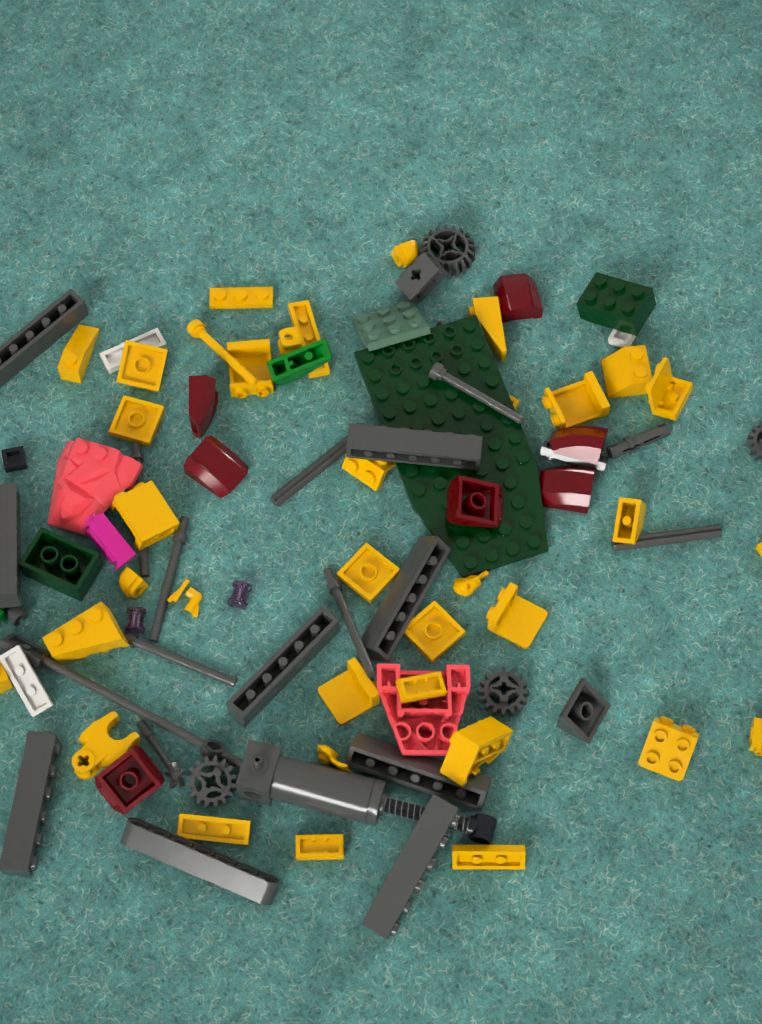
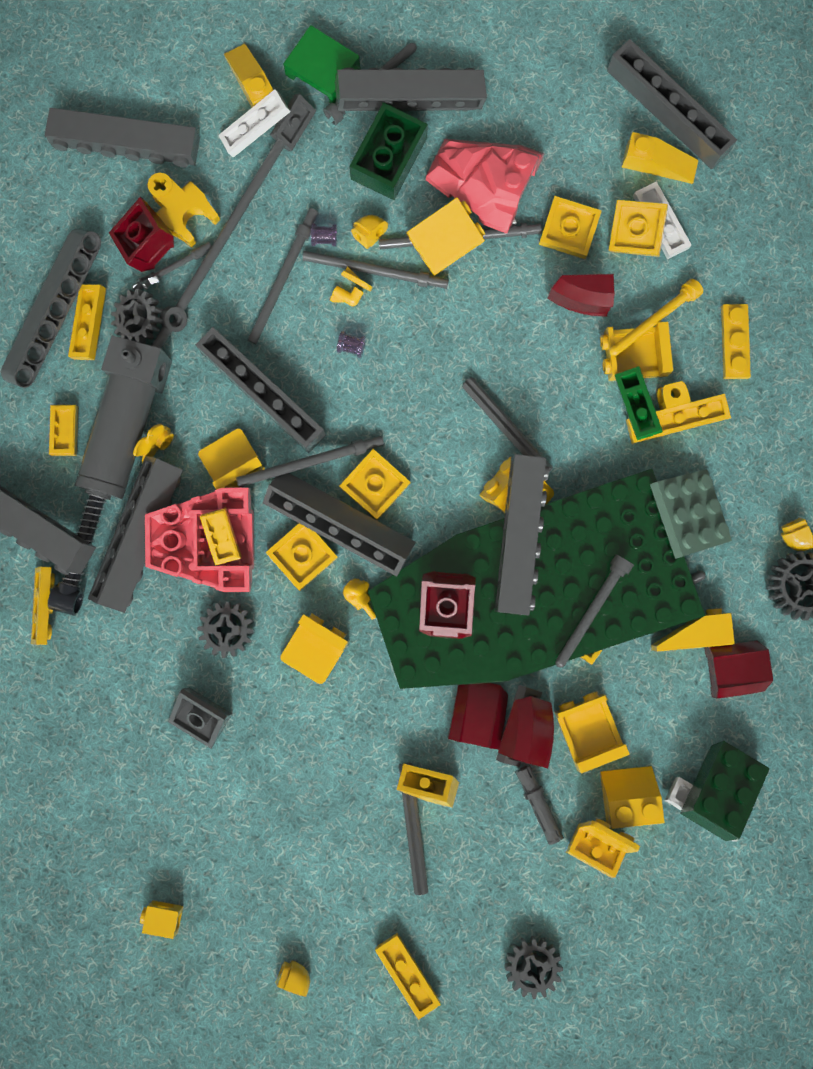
camera: 90 degrees right, 20 degrees up
(14, 459) = (522, 98): black plate -> none
(86, 635) = (303, 184): yellow wedge -> none
(108, 540) = (415, 200): dark pink window -> none
(215, 467) = (510, 316): dark red slope -> none
(421, 277) = (760, 551): dark grey brick -> none
(473, 747) = (151, 595): yellow wedge -> none
(668, 748) = (156, 812): yellow bracket -> none

